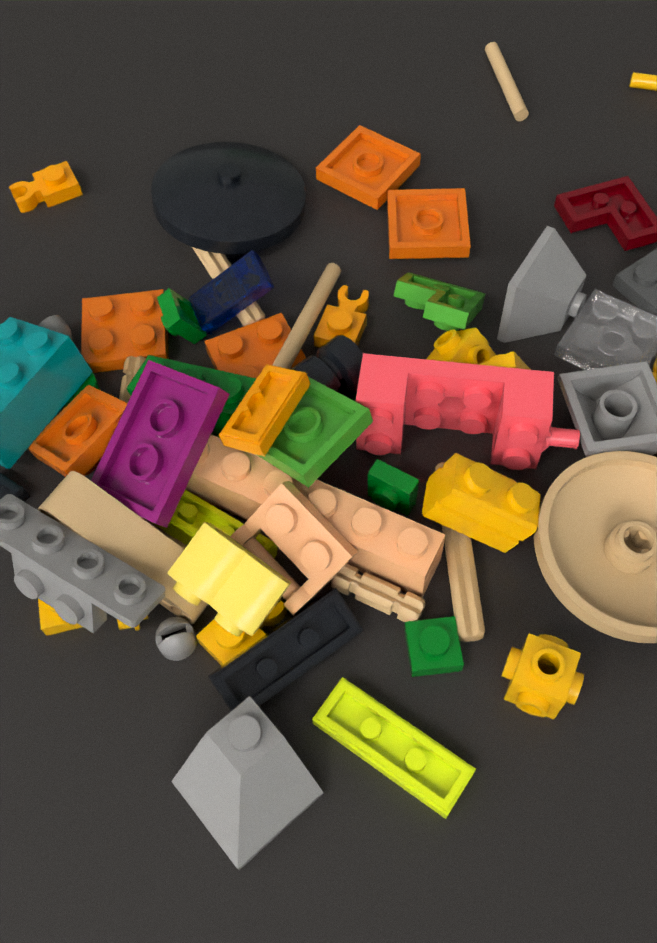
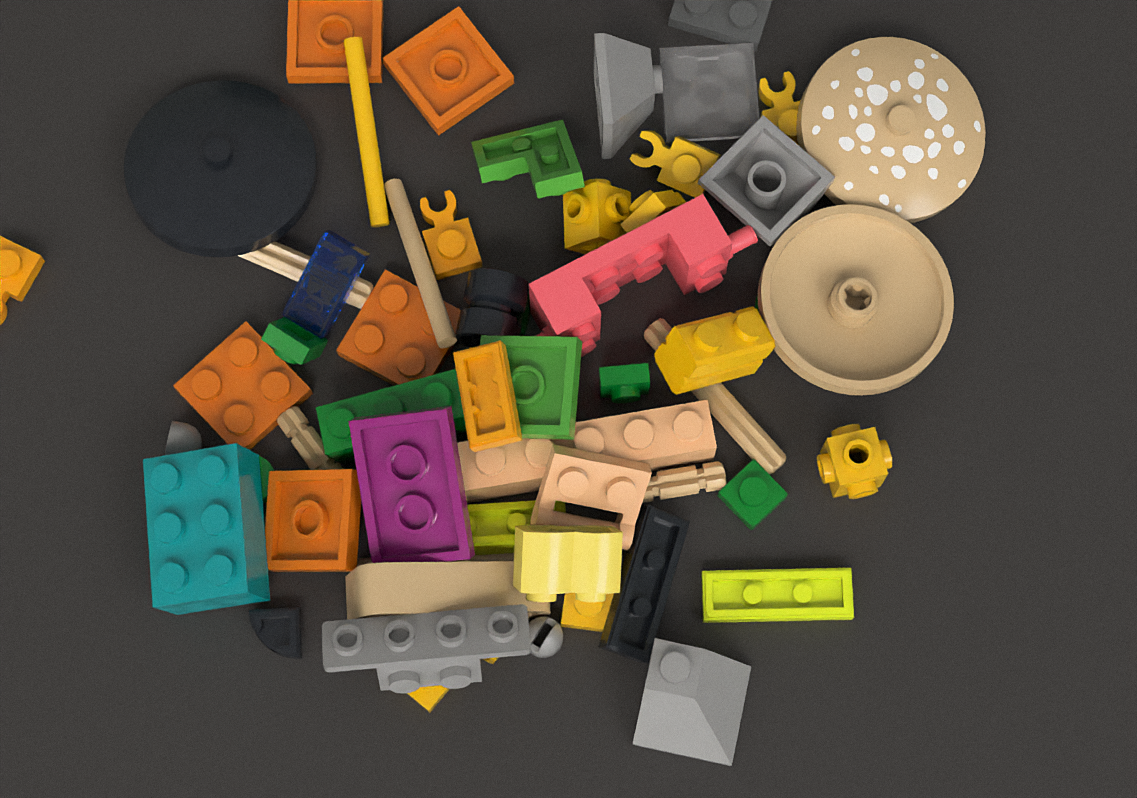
camera: 40 degrees left, 15 degrees up
(339, 226) = (366, 132): none -> yellow bar
(551, 360) = (680, 164): none -> yellow plate

